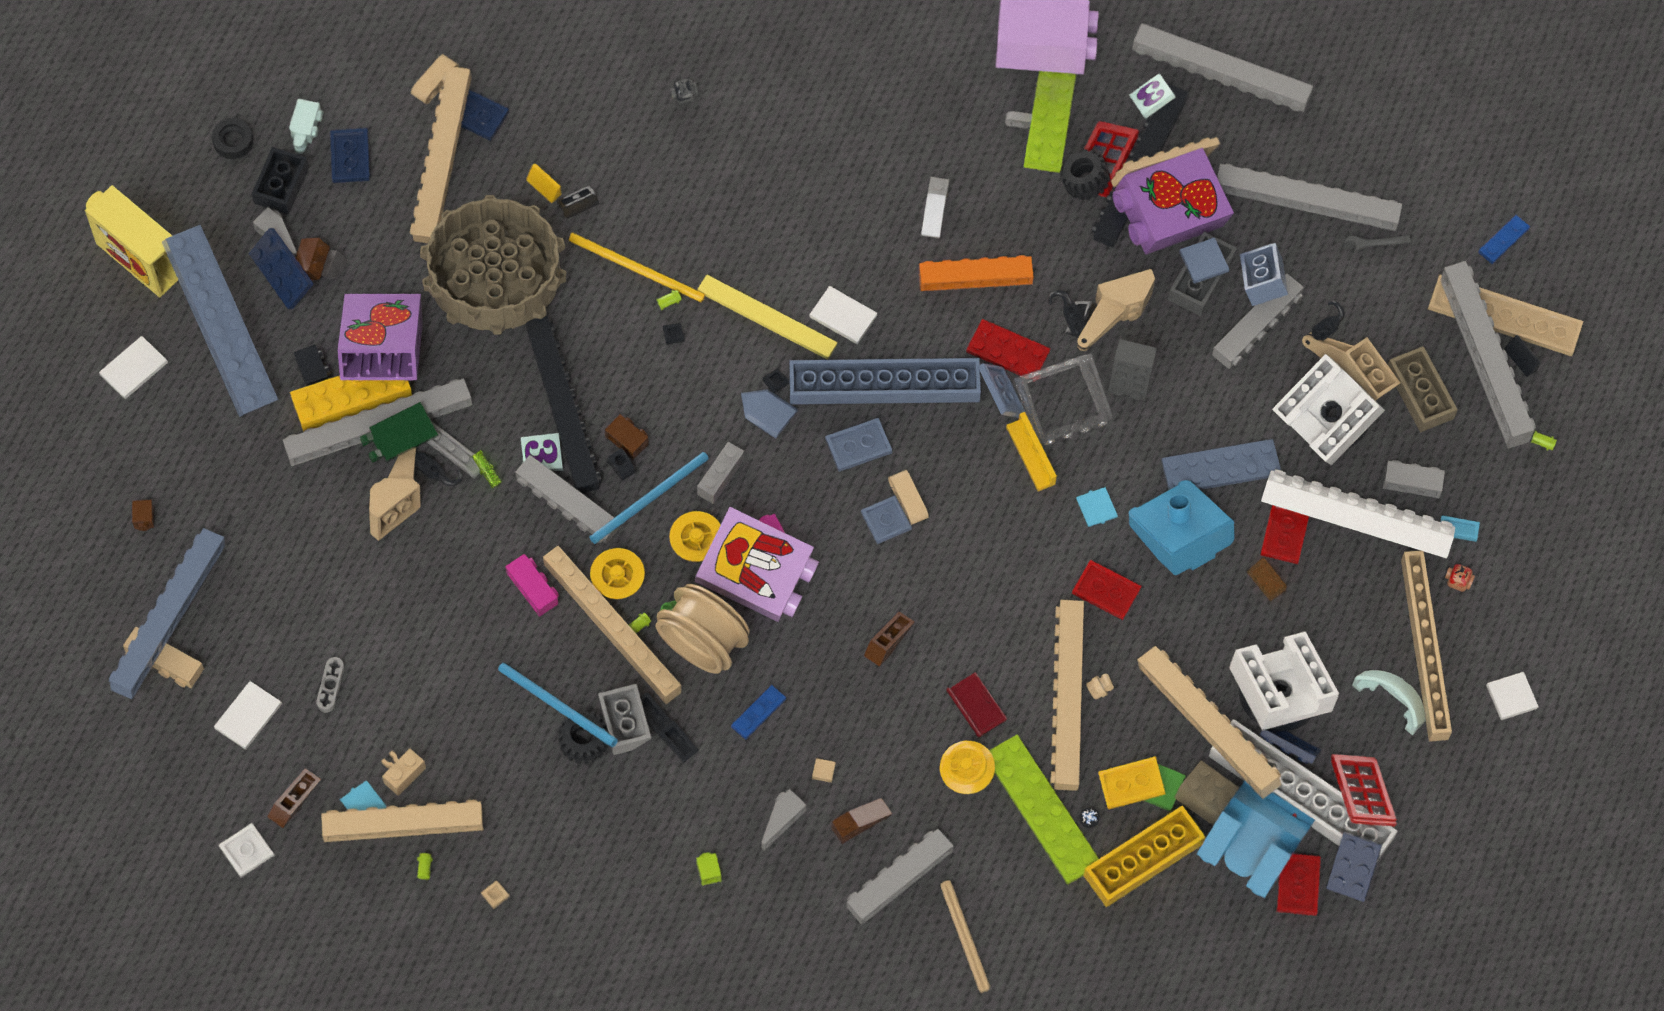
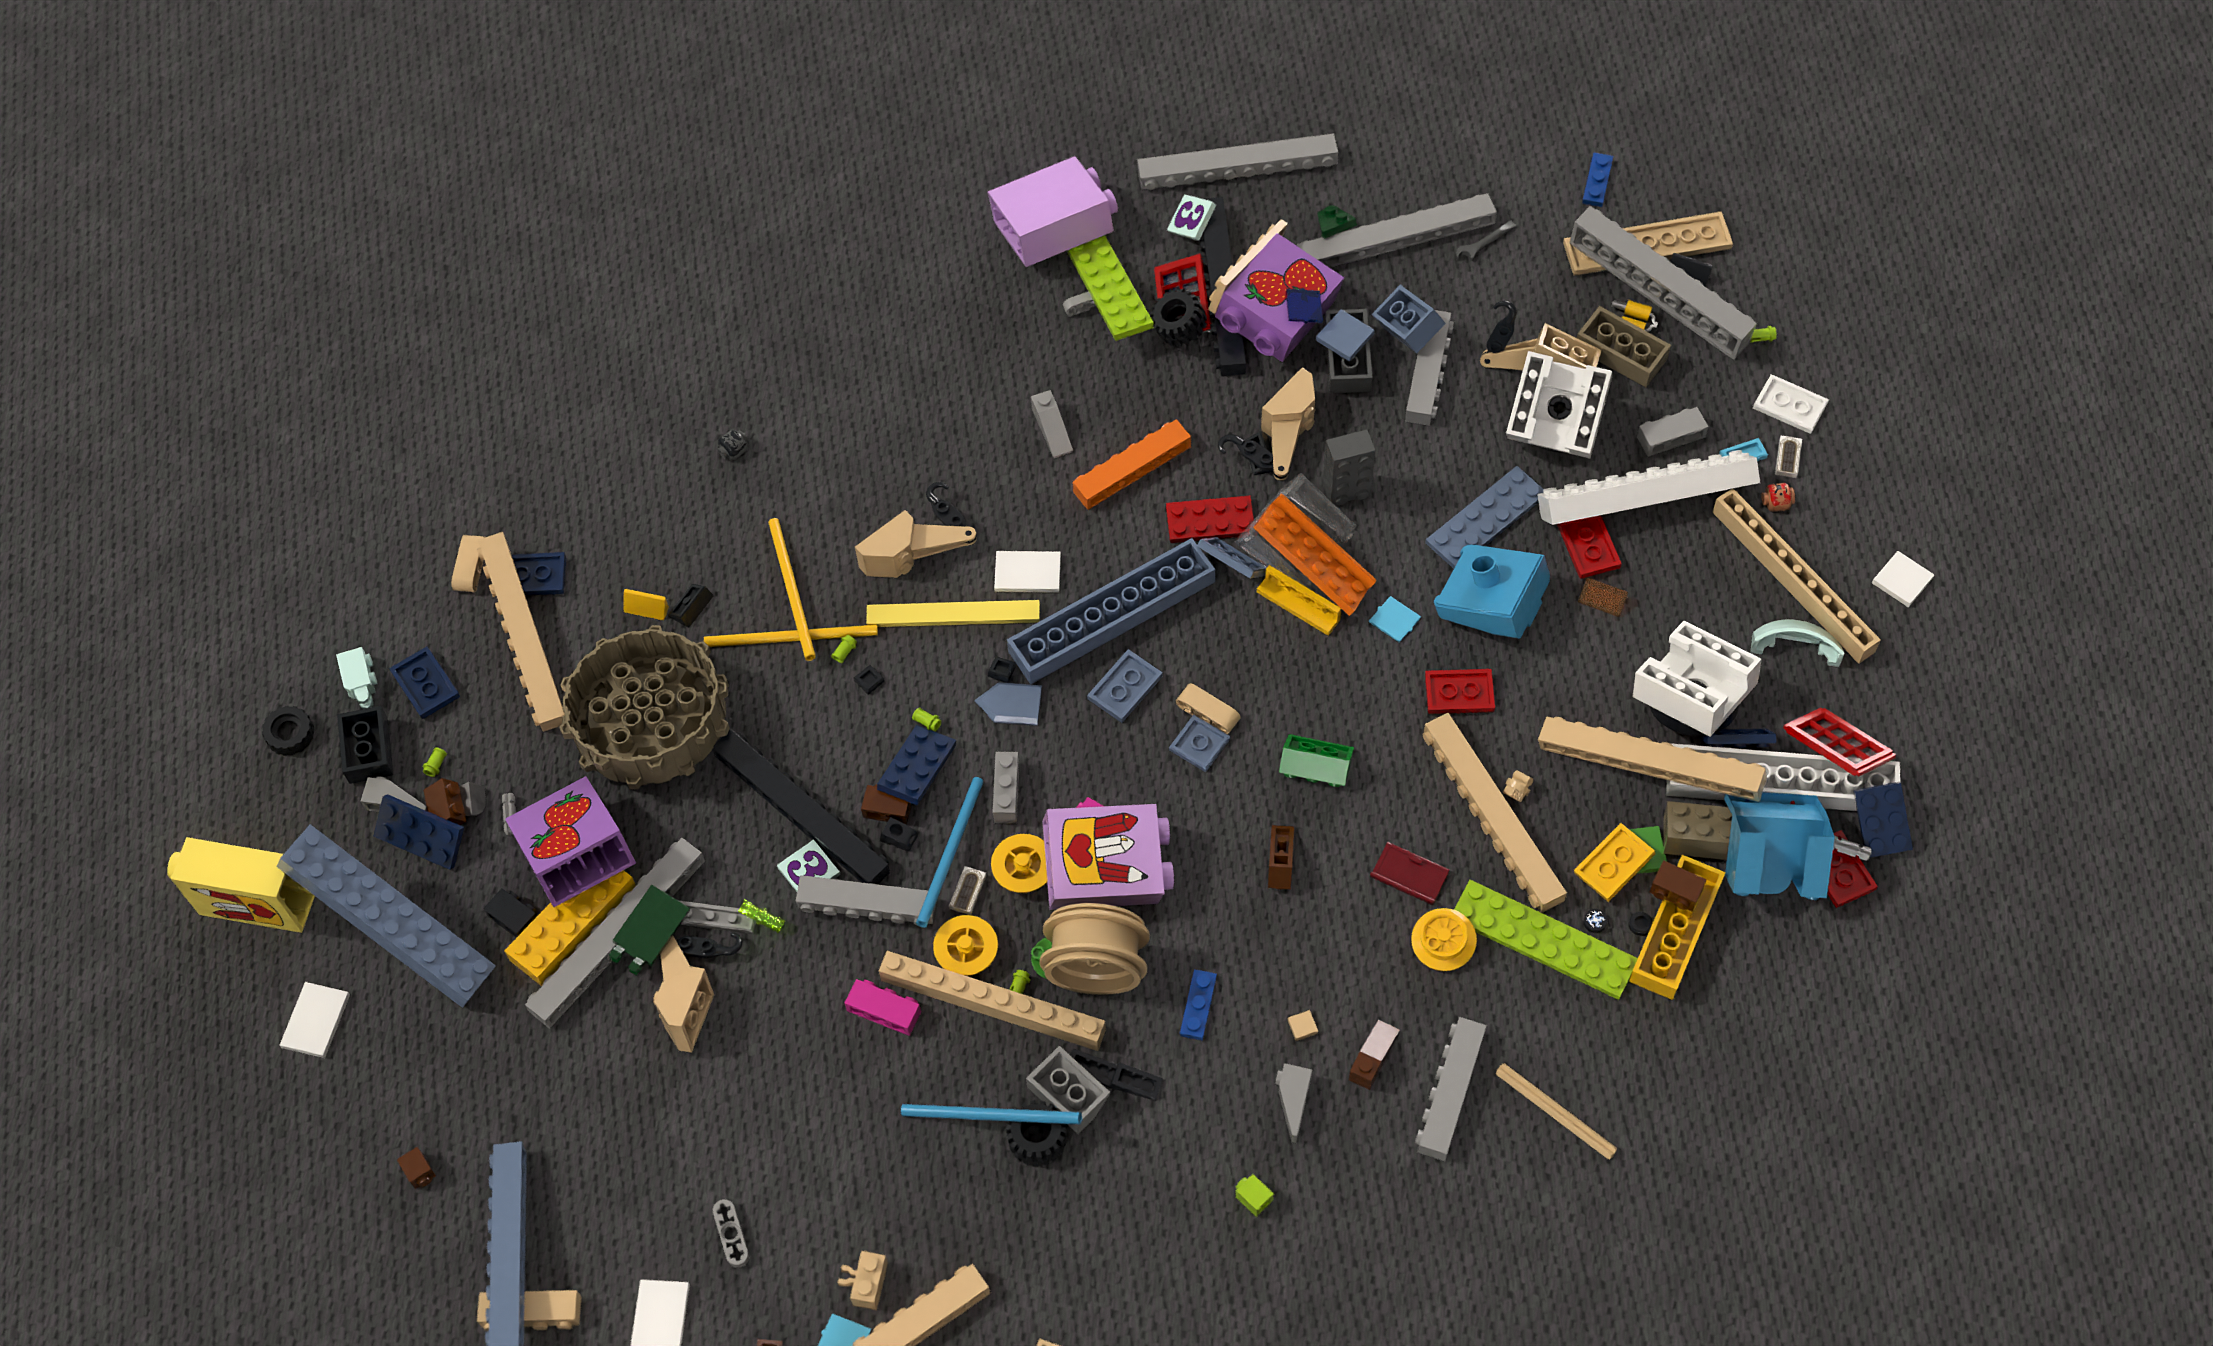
camera: 25 degrees left, 5 degrees down
(321, 222) = (432, 767): none -> lime pin
(355, 286) = (508, 809): none -> light grey axle
(646, 534) = (967, 890): none -> tile
(658, 231) = (792, 590): none -> yellow piece
(666, 419) = (916, 765): none -> dark blue plate
(698, 392) = (931, 722): none -> lime pin
(758, 240) = (900, 541): none -> tan slope
(963, 581) = (1316, 760): none -> slope
(1060, 423) = (1314, 553): none -> orange bracket
(1120, 837) = (1640, 923): none -> black tile
(1159, 826) = (1677, 886): none -> reddish brown brick
(1183, 219) = (1304, 305): none -> clear blue piece
(1263, 160) = (1334, 220): none -> dark green wing
(1314, 872) = (1852, 849): none -> light grey axle
(1456, 365) = (1637, 311): none -> yellow piece
(1493, 550) = (1788, 456): none -> tile
(1526, 509) = (1790, 404): none -> white tile

